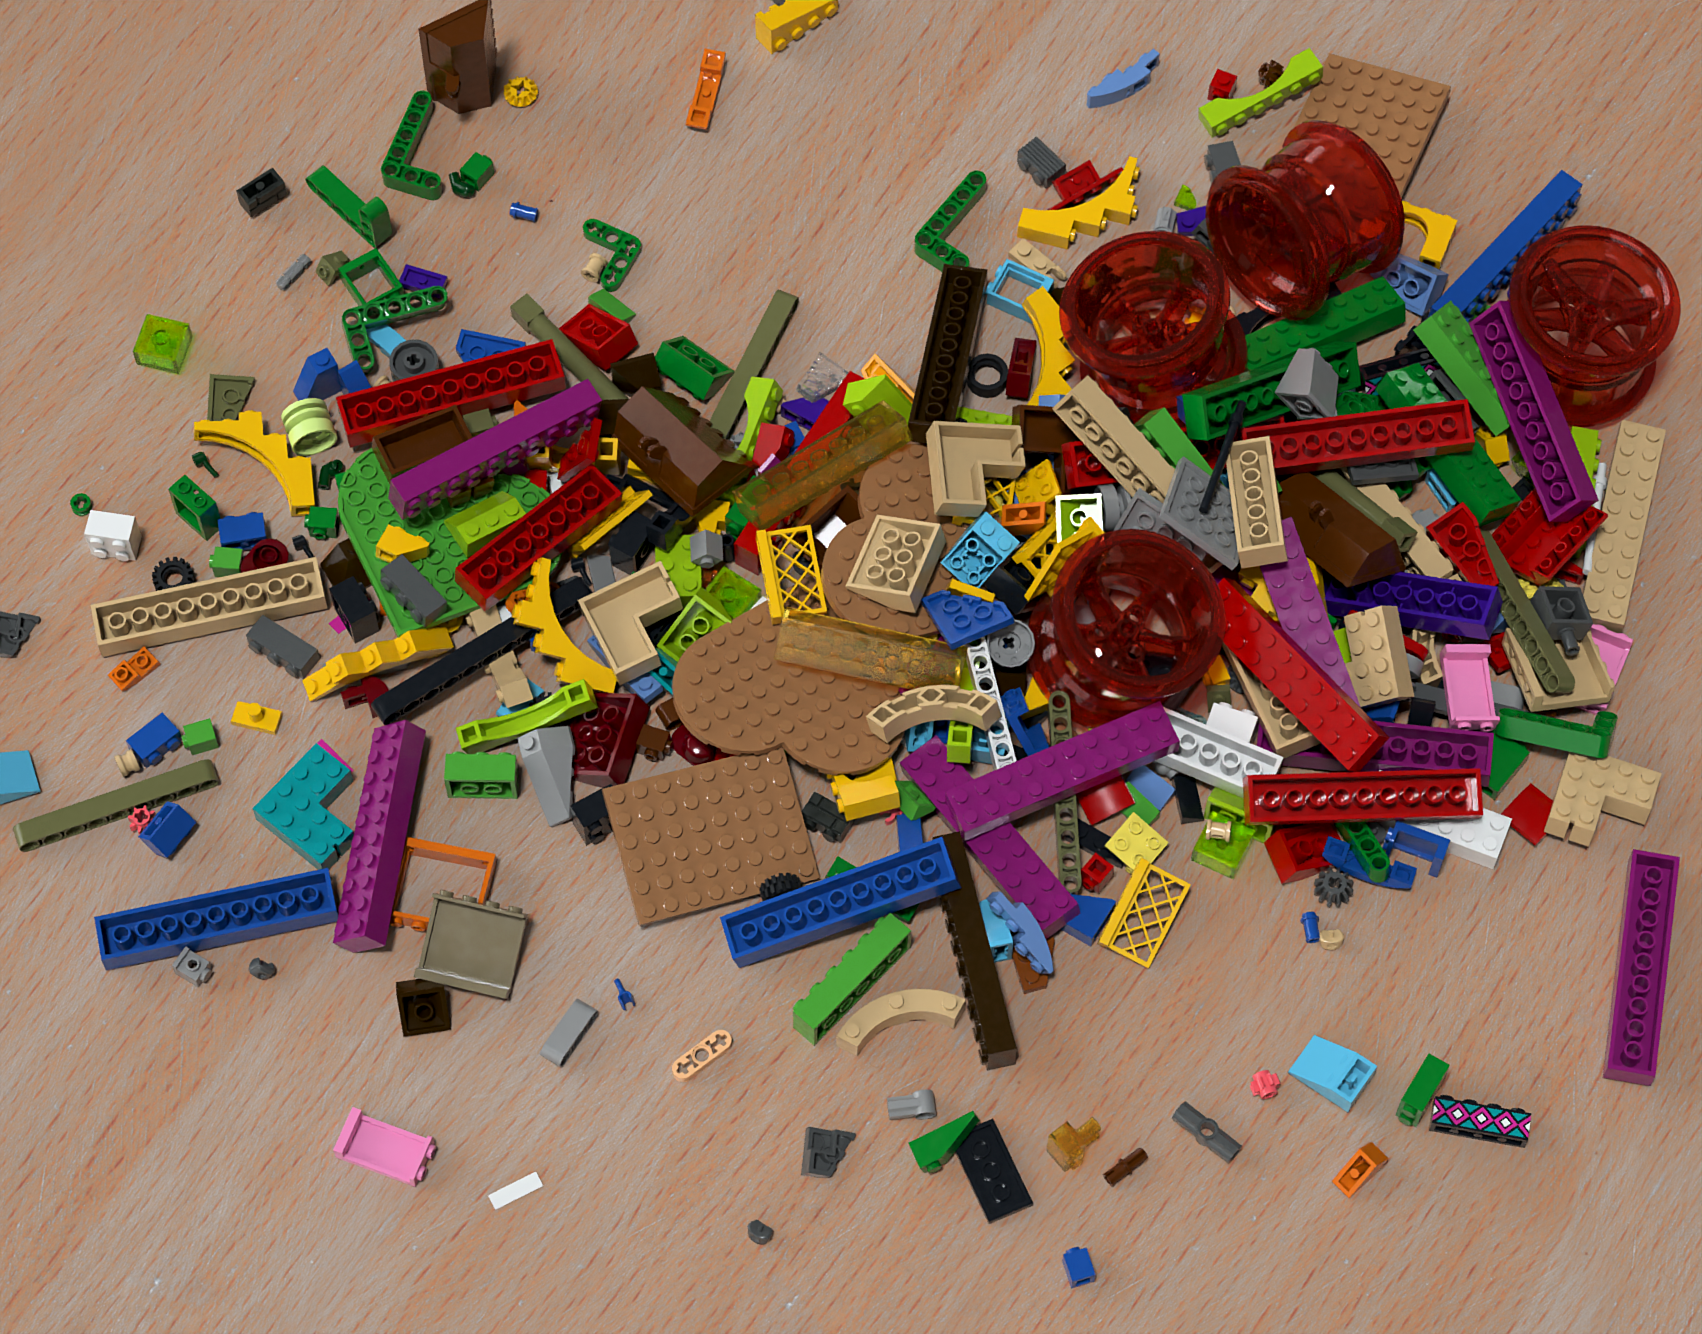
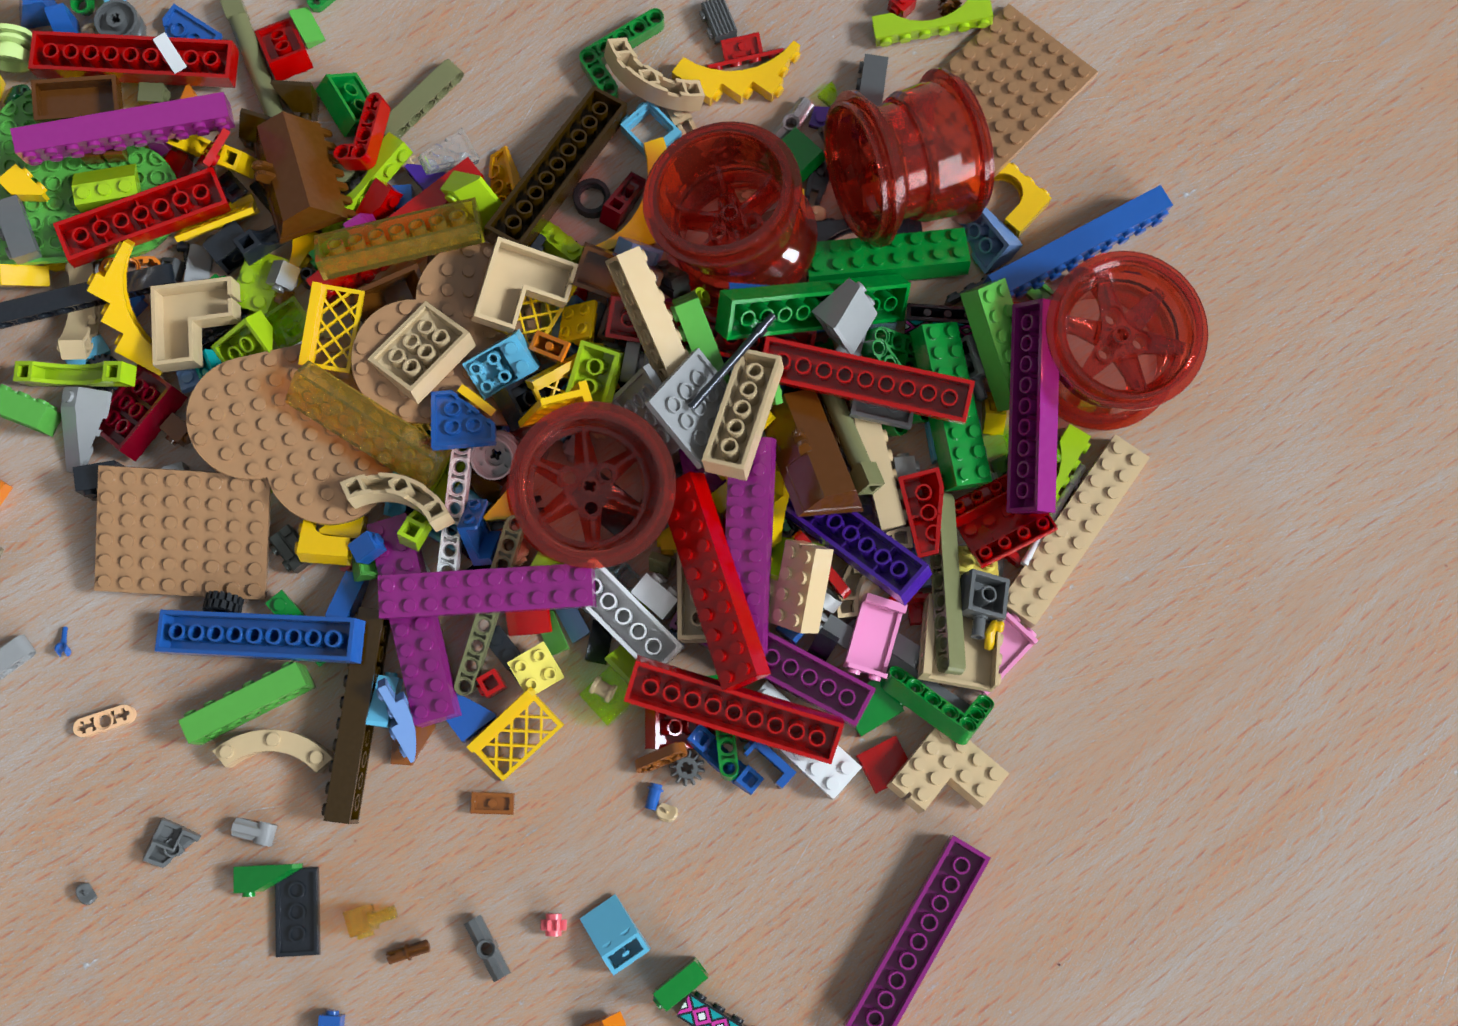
camera: 20 degrees right, 15 degrees up
(491, 372) = (169, 53): none -> white sticker
(737, 402) = (368, 138): none -> red beam
(915, 777) = (367, 547): none -> blue brick
(1002, 241) = (649, 83): none -> tan brick
(1148, 991) = (492, 803): none -> dark orange plate
(1303, 881) = (660, 757): none -> dark orange beam
(1583, 643) = (989, 640): none -> yellow arm

